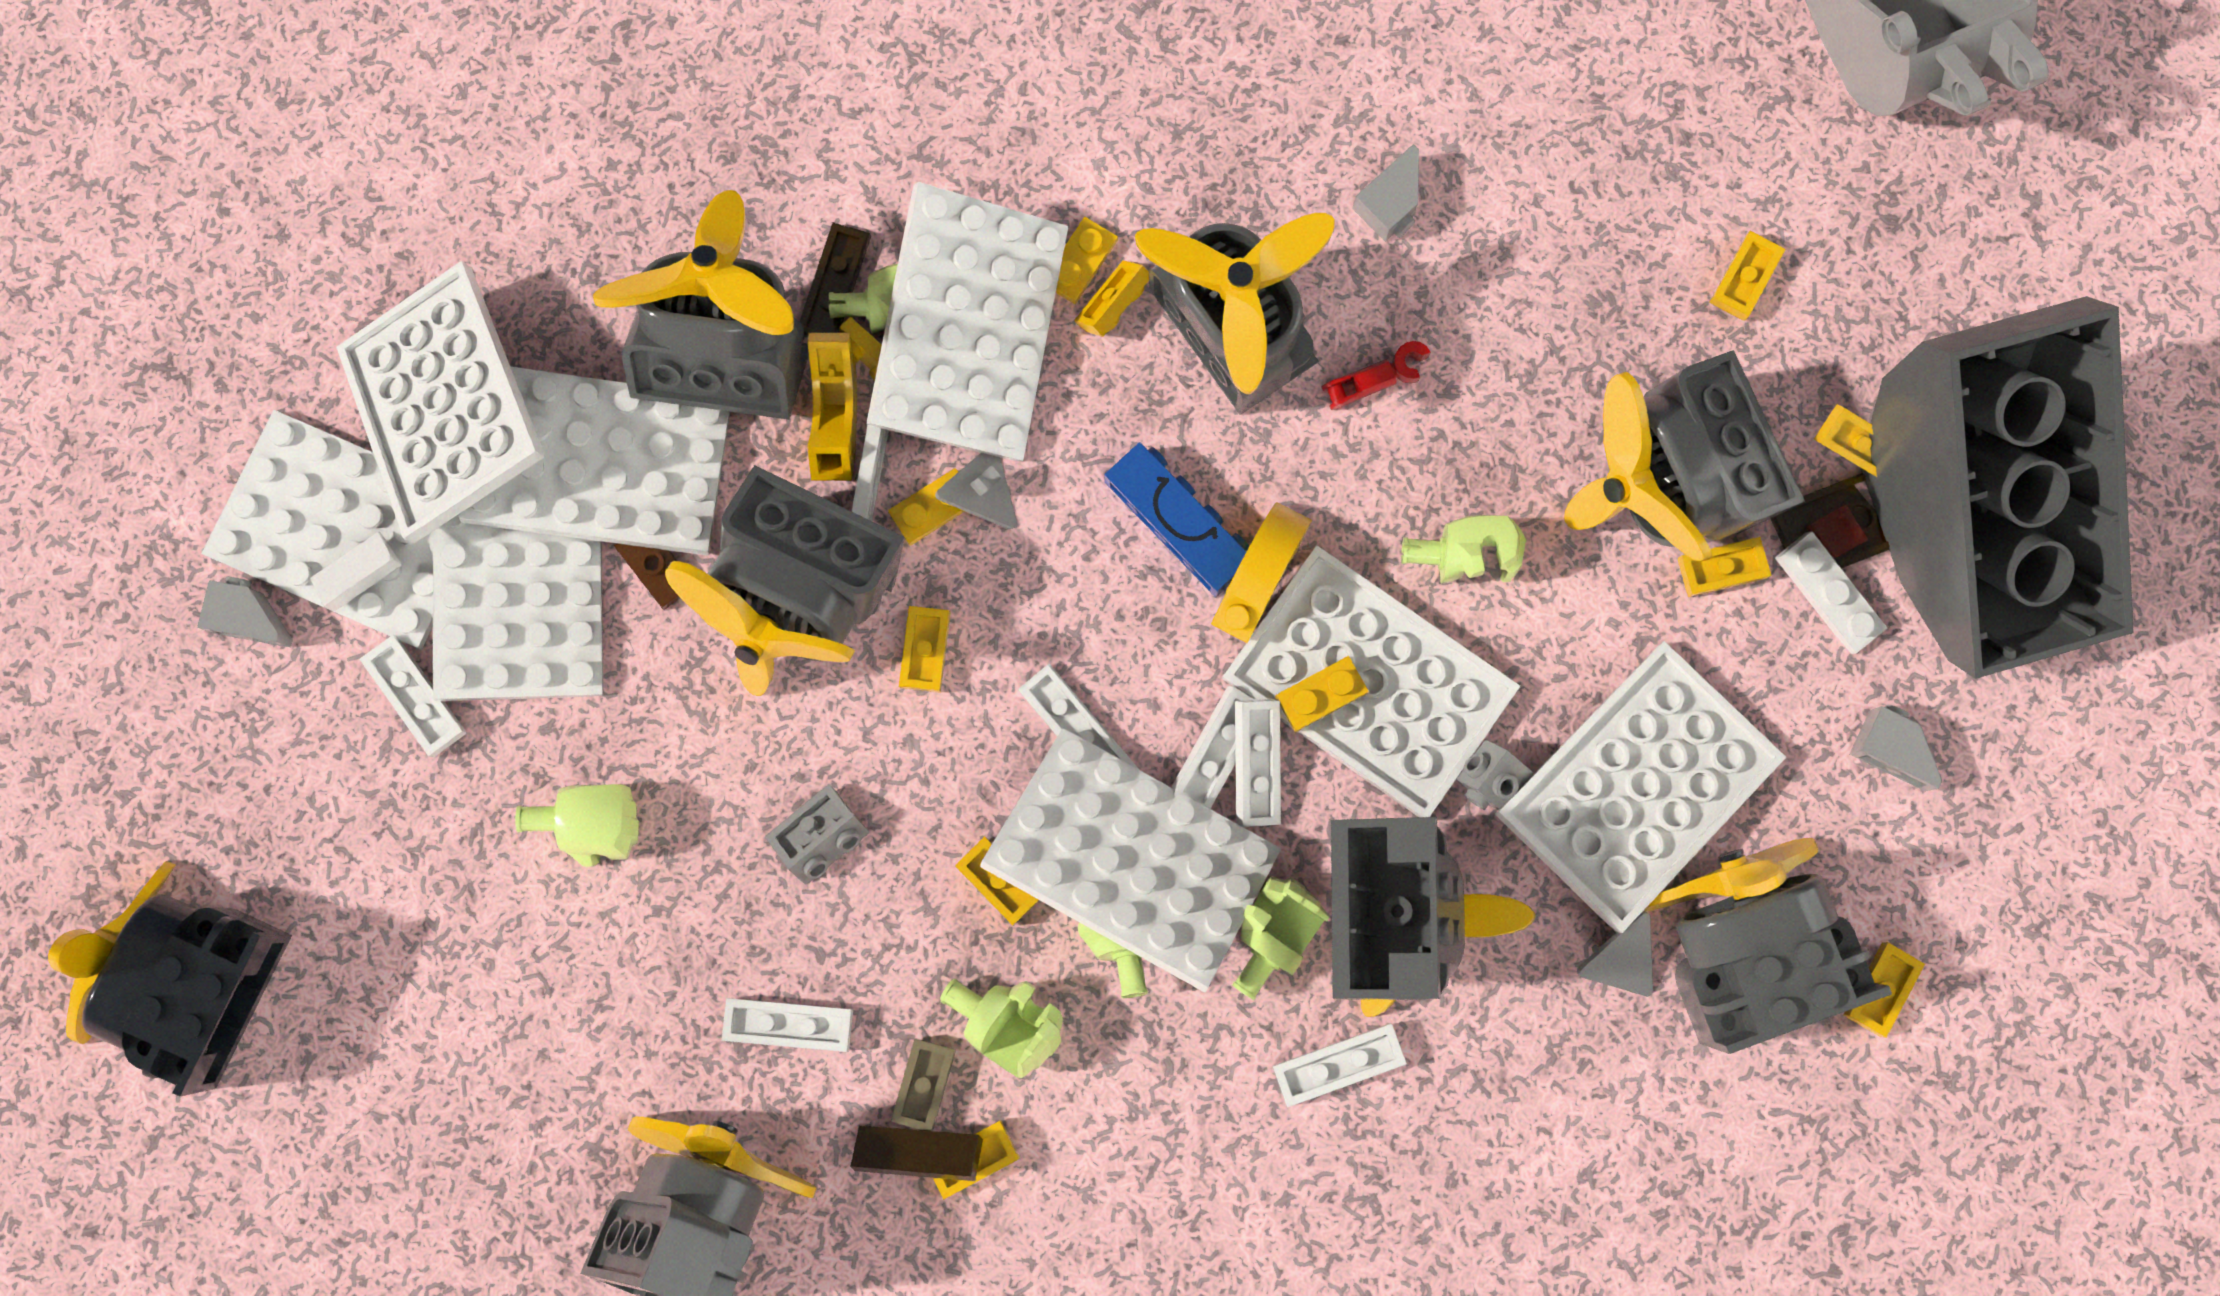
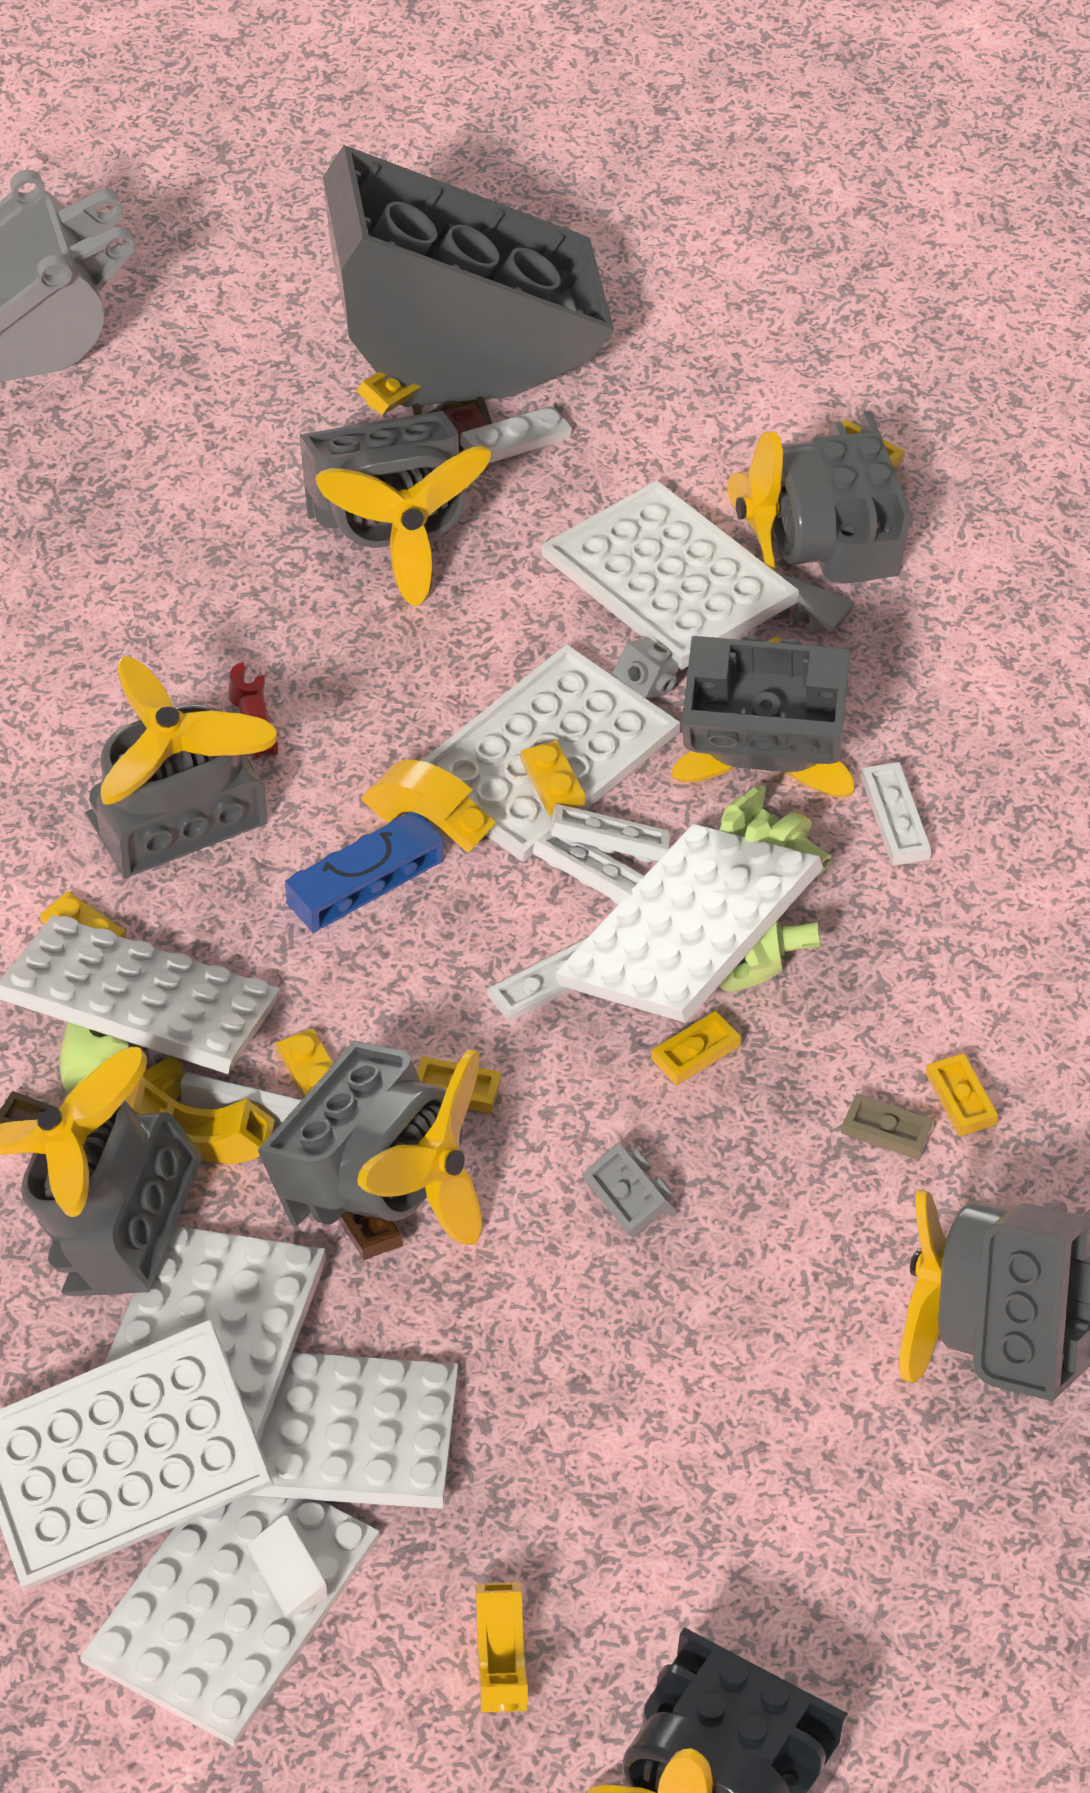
camera: 90 degrees left, 30 degrees down
(241, 613) = (312, 1695): light grey slope -> none
(281, 775) = (501, 1647): none -> yellow arch
(412, 696) = (431, 1539): white plate -> none
(587, 821) = (593, 1376): yellowish green piece -> none
(650, 568) = (335, 1308): reddish brown plate -> none
(787, 1025) = (818, 1232): white plate -> none
(917, 1153) = (952, 1129): dark brown tile -> none
(981, 491) = (300, 1020): light grey piece -> none
(1007, 1025) = (838, 1045): yellowish green piece -> none
(1112, 299) = (131, 897): yellow plate -> none
(1391, 197) = (81, 678): light grey slope -> none
(1462, 545) = (432, 653): yellowish green piece -> none
(1726, 568) = (482, 504): yellow plate -> none
(1747, 275) = (217, 452): yellow plate -> none
(1897, 747) = (659, 411): light grey slope -> none

